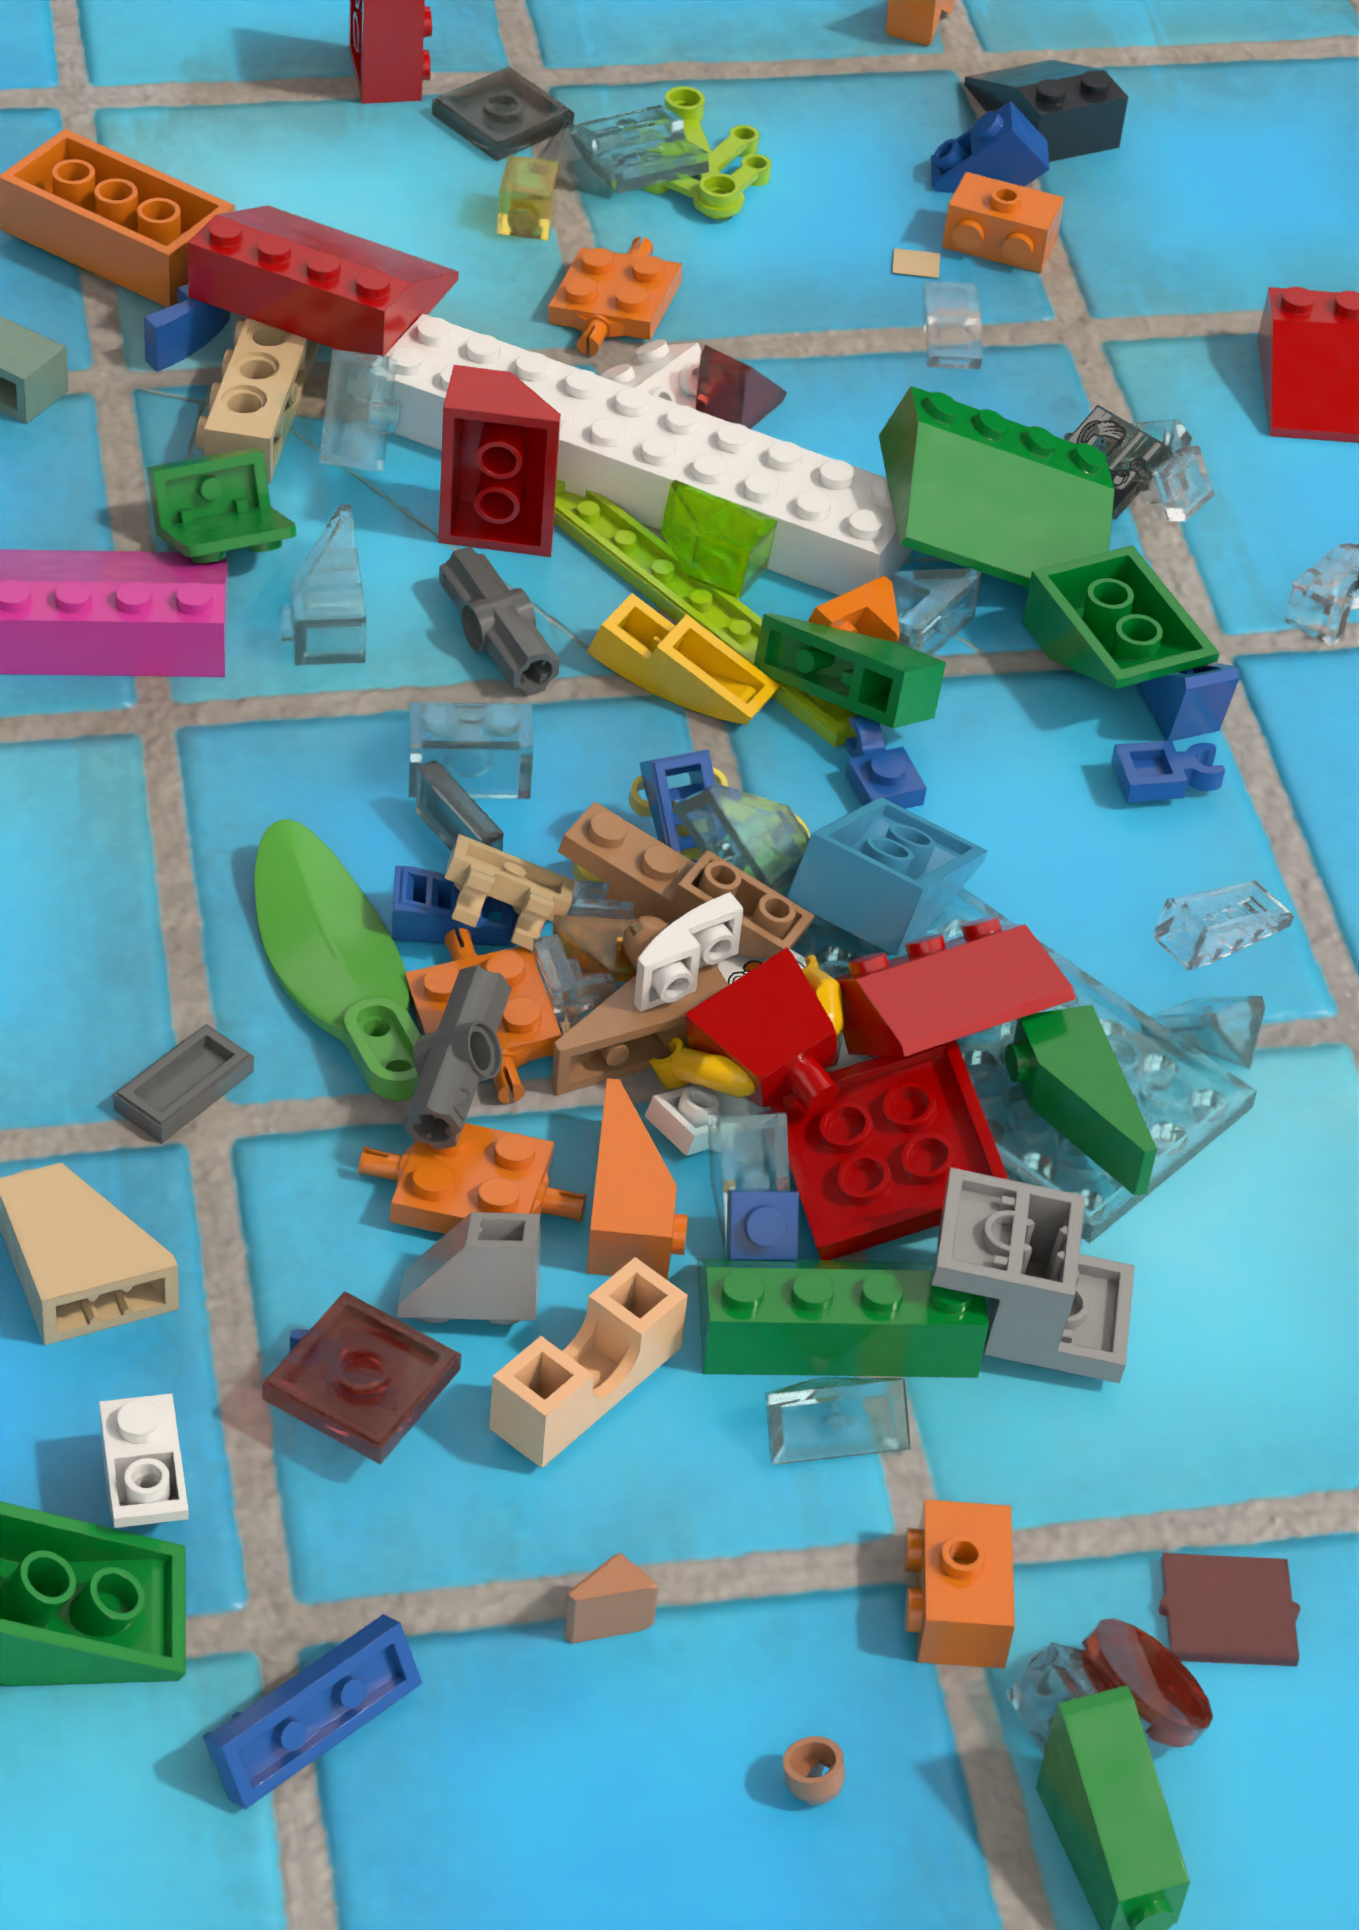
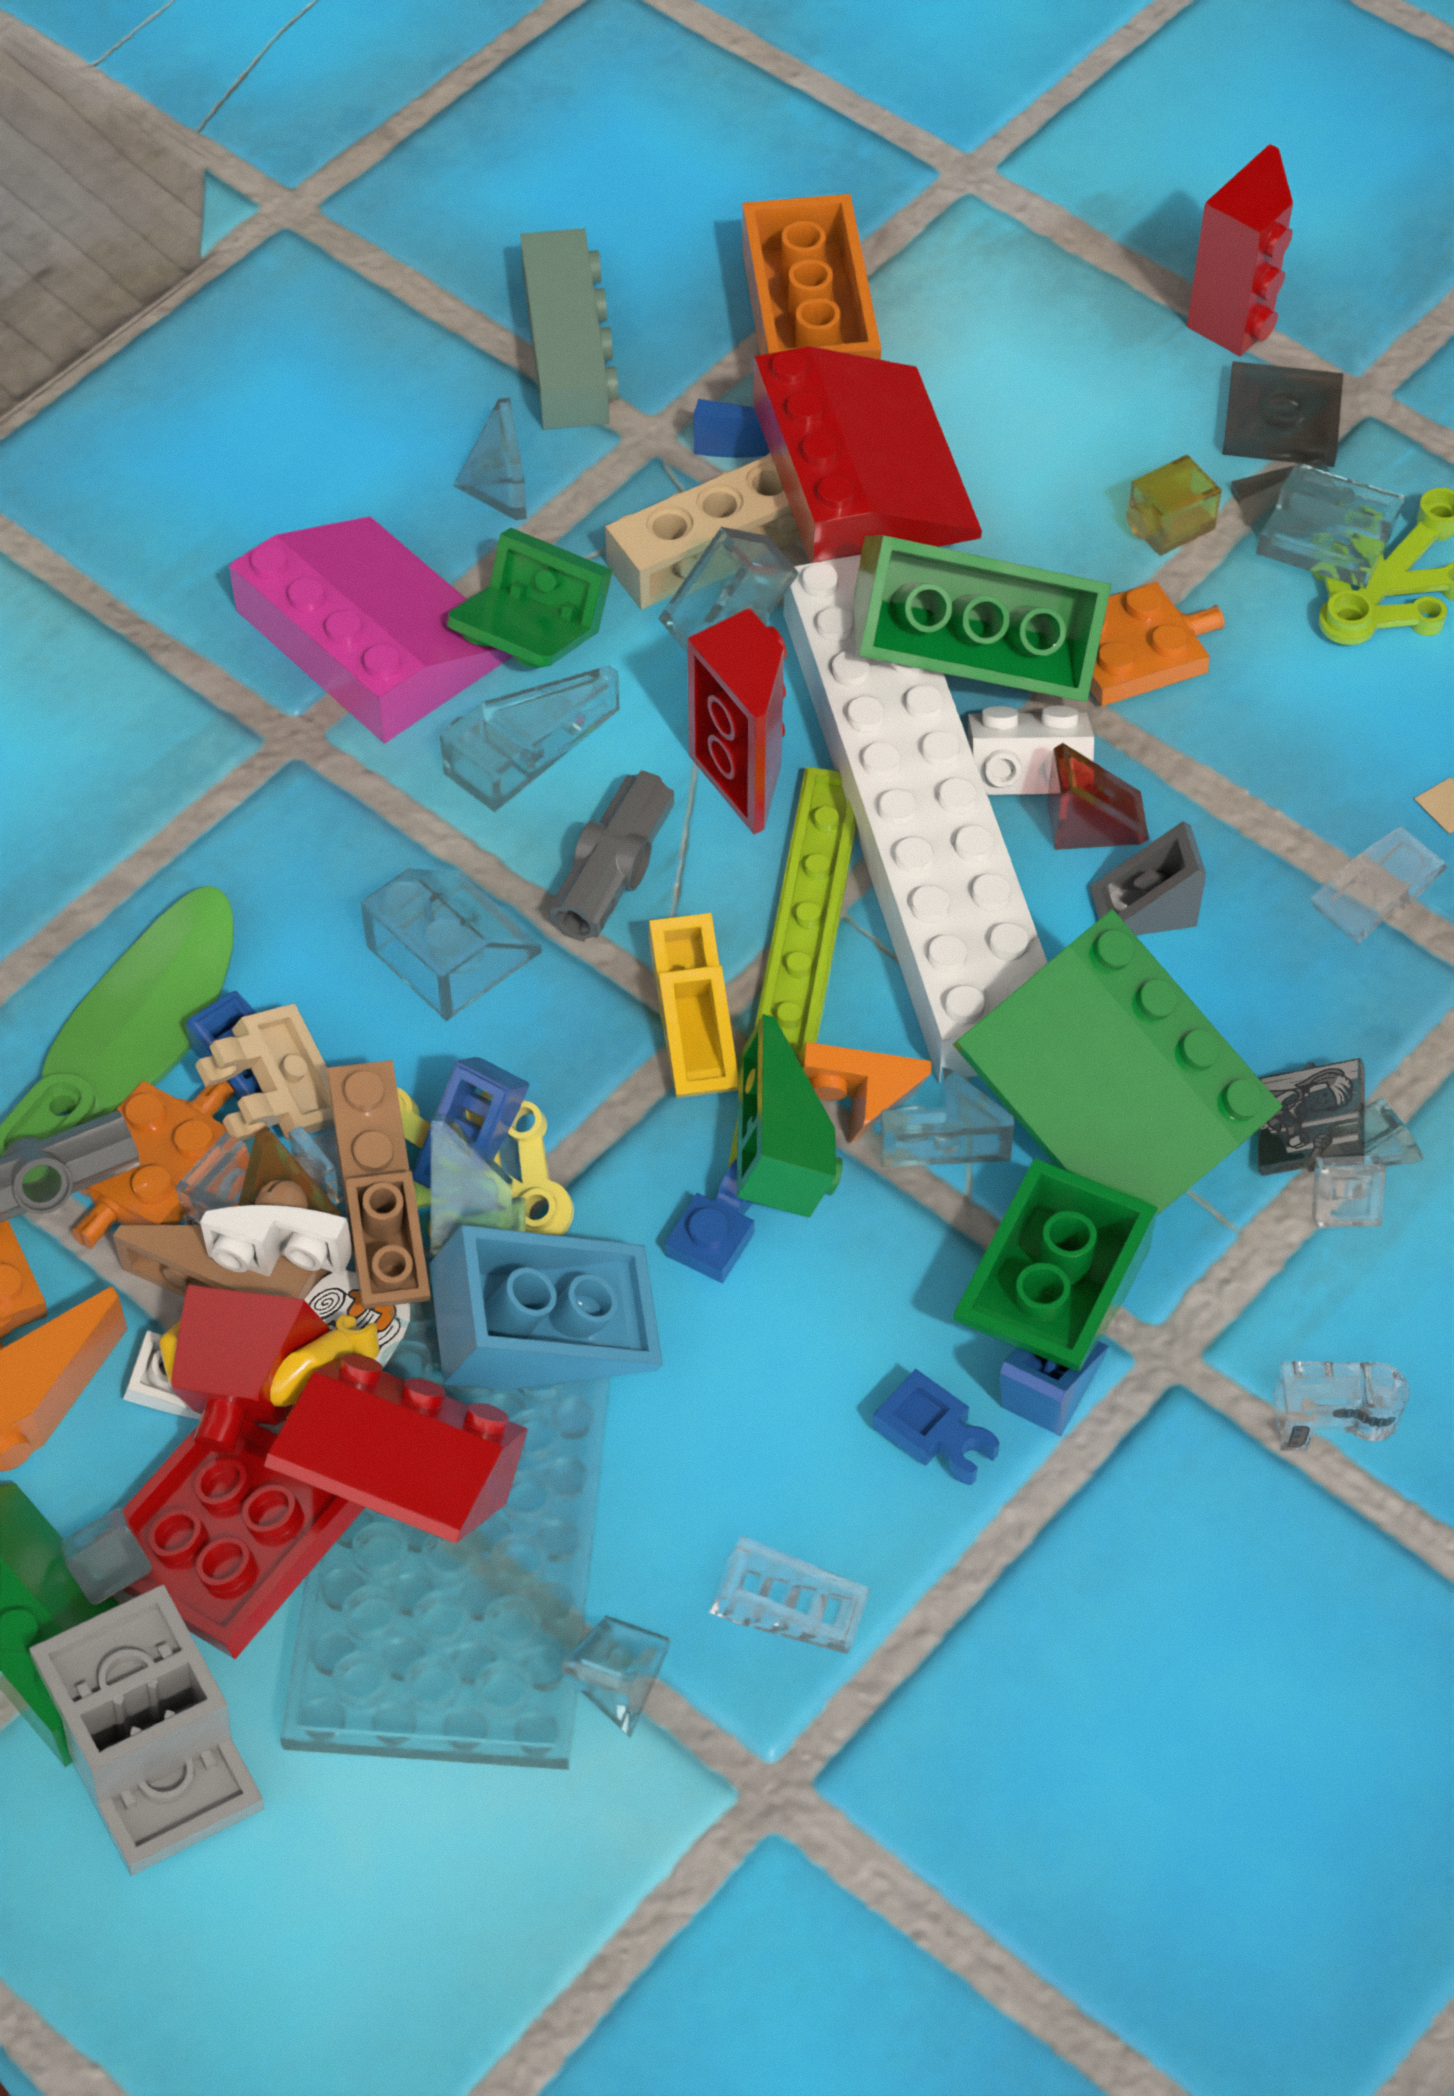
camera: 55 degrees right, 10 degrees up
(48, 452) = (494, 465): none -> clear light blue slope
(451, 810) = (343, 994): clear smoke tile -> none
(548, 306) = (978, 617): none -> green slope
(717, 539) = (858, 926): clear neon green slope -> none
(746, 1154) = (118, 1450): clear light blue slope -> none
(762, 1224) = (67, 1496): blue plate -> none
(842, 1223) = (105, 1556): none -> clear light blue slope
(845, 402) = (1156, 886): none -> dark grey slope
(1082, 1092) = (414, 1609): green slope -> none

